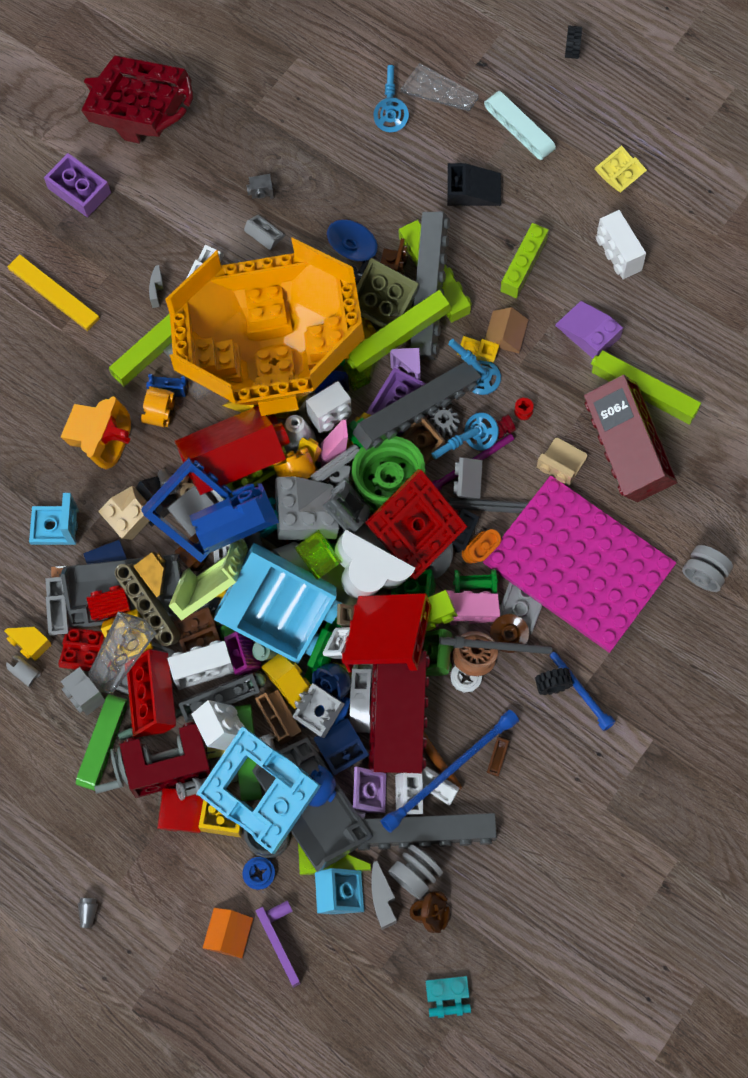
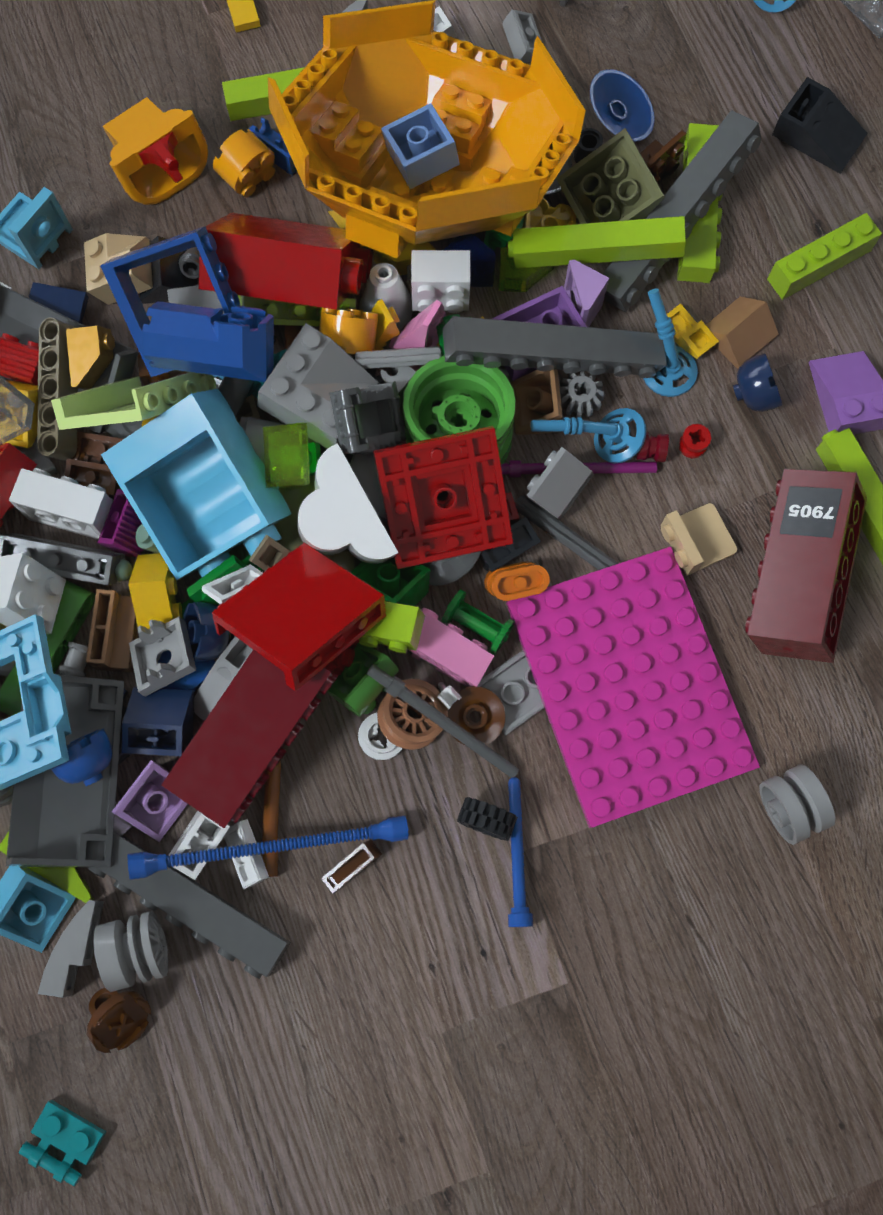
camera: 30 degrees right, 5 degrees up
(263, 337) = (420, 146): none -> medium blue brick
(488, 630) = (447, 695): none -> white hand
(537, 356) = (757, 385): none -> dark blue cylinder

